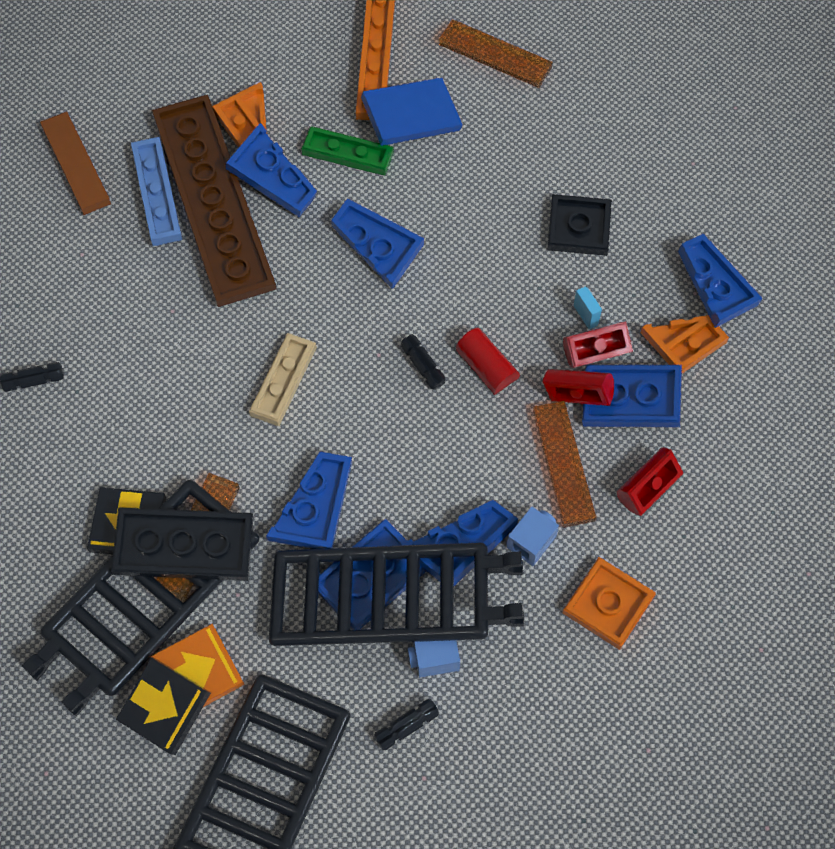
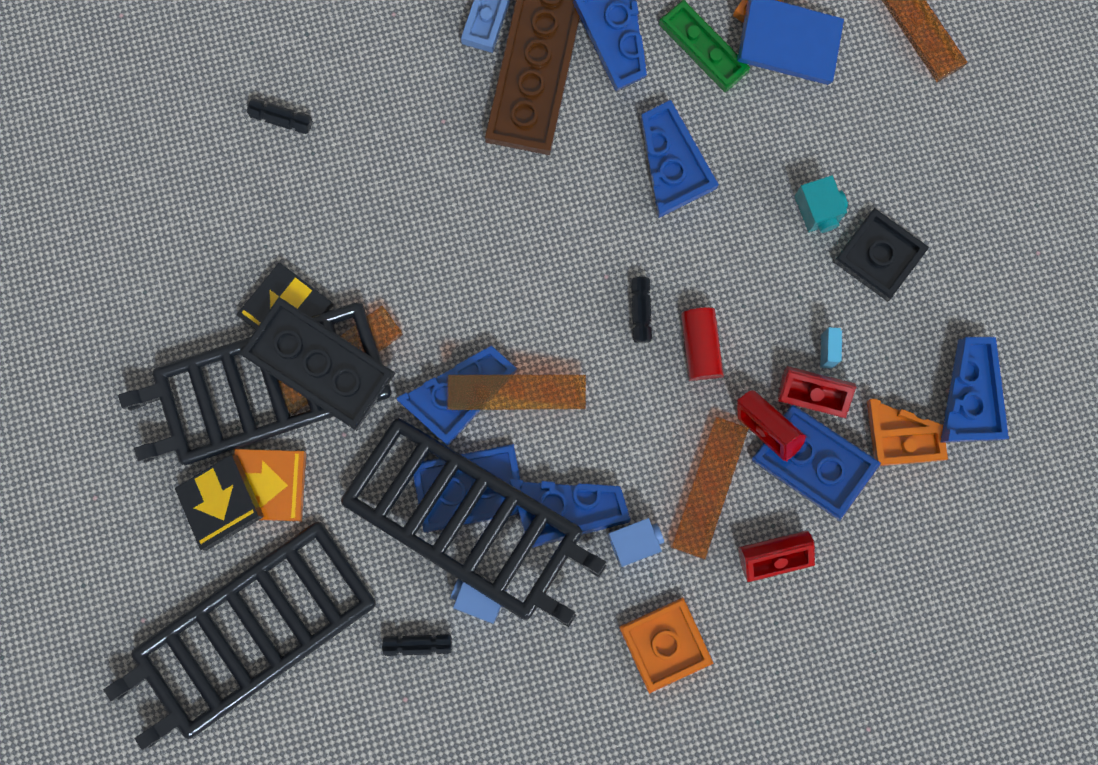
camera: 30 degrees right, 15 degrees up
(282, 379) = (503, 250): tan tile -> none
(362, 475) = (516, 392): none -> clear orange tile
(511, 211) = (821, 204): none -> teal brick

